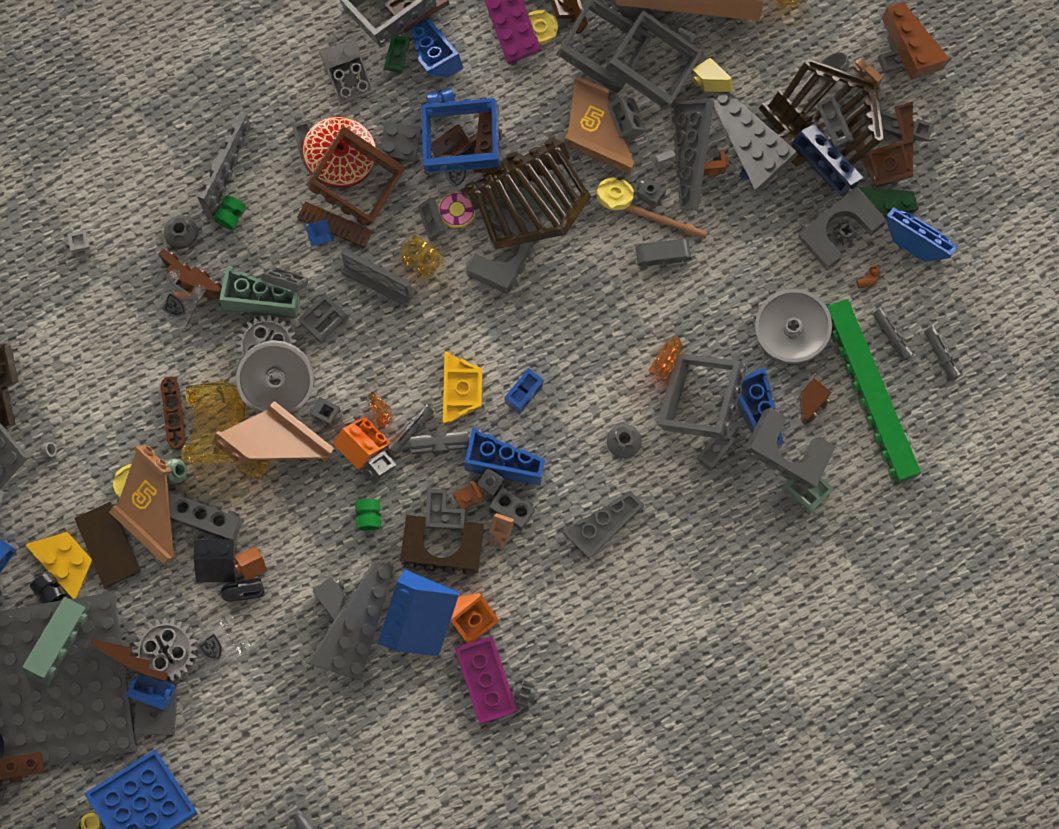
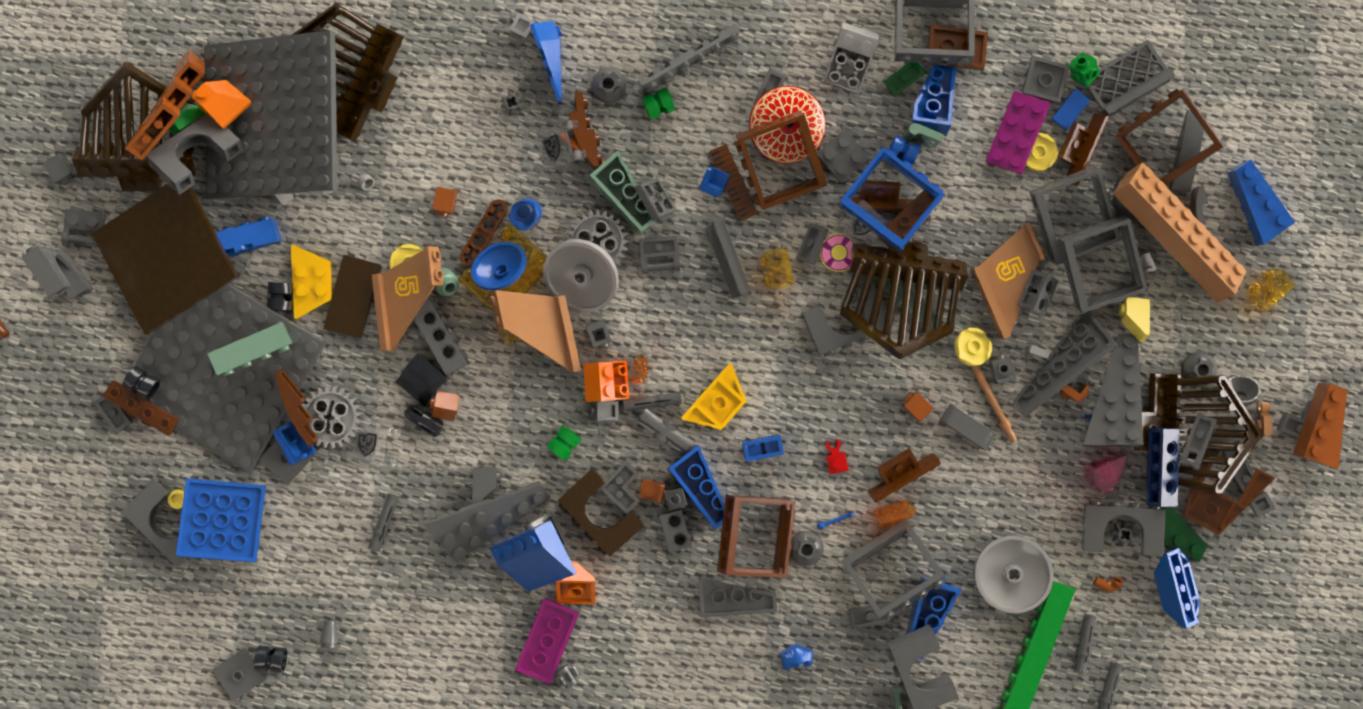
camera: 40 degrees right, 15 degrees up
(108, 236) = (549, 45): none -> wedge
(122, 299) = (513, 108): none -> dark grey gear
(123, 413) = (445, 201): none -> dark orange brick
(194, 370) = (525, 214): none -> blue hair
(204, 421) = (499, 266): none -> blue dish
(276, 698) = (380, 530): none -> dark grey pin
(450, 75) = (927, 136): none -> sand green plate
(501, 528) = (653, 540): medium nougat plate -> none
(556, 472) = (730, 532): none -> reddish brown window
(588, 358) = (836, 460): none -> red plate
(612, 268) = (917, 406): none -> dark orange brick
(620, 414) = (820, 525): none -> blue hinge
(642, 325) = (900, 472): none -> reddish brown bracket
(690, 526) = (796, 656): none -> blue hair
(782, 80) = (1191, 363): none -> dark grey piece
(791, 203) = (1105, 473): none -> clear pink slope
(811, 399) = (975, 641): reddish brown slope -> none

